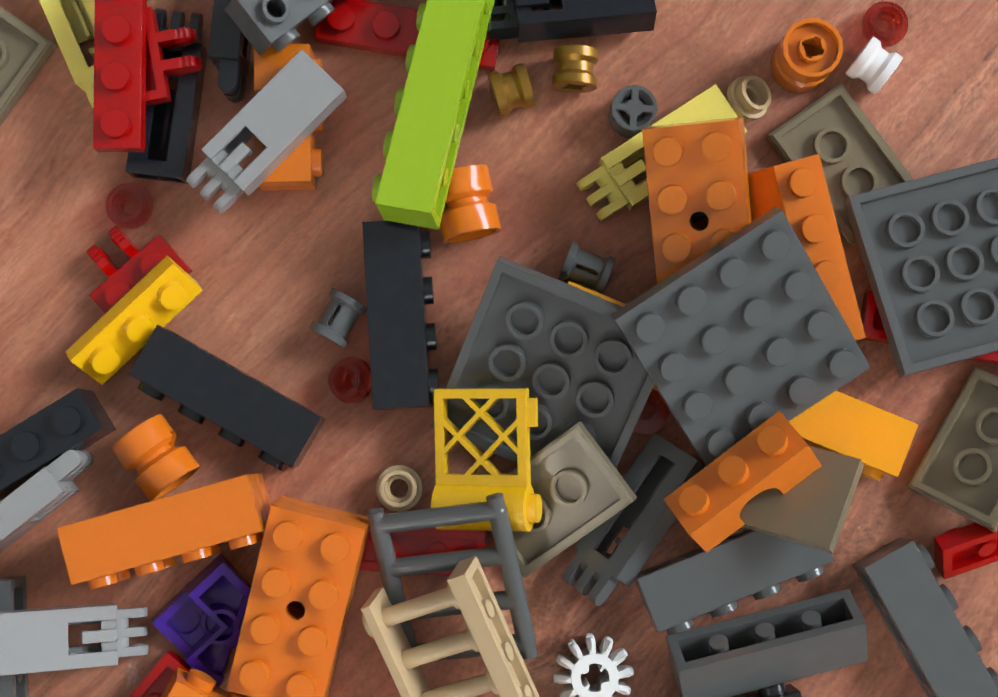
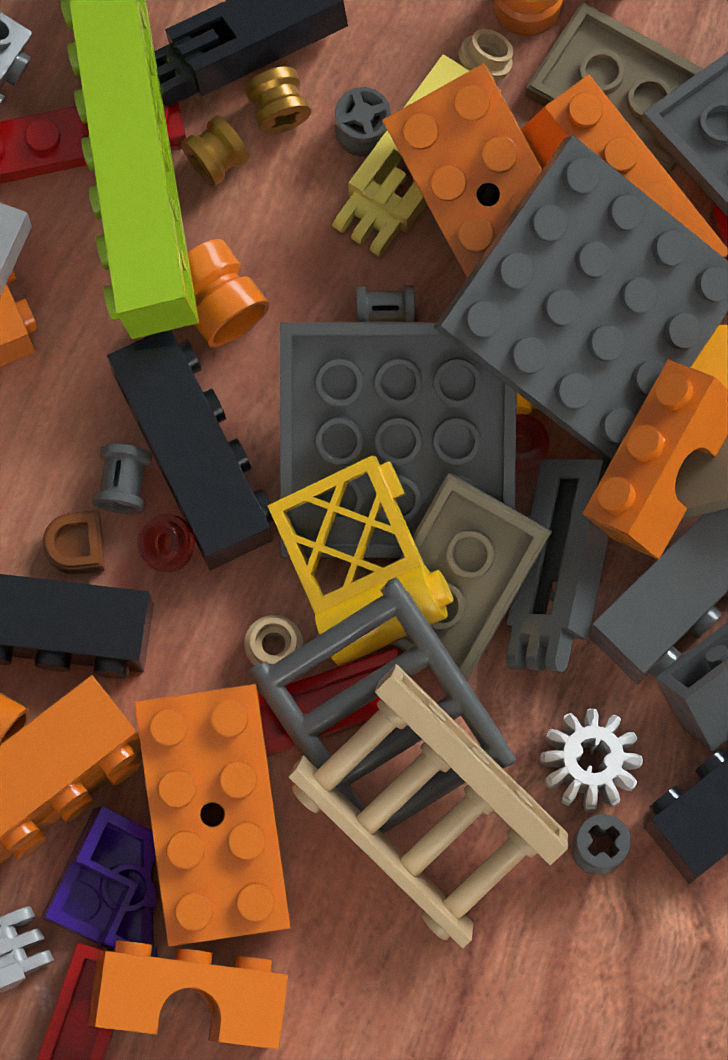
camera: 20 degrees left, 10 degrees down
(286, 350) = (75, 543): none -> dark orange tile

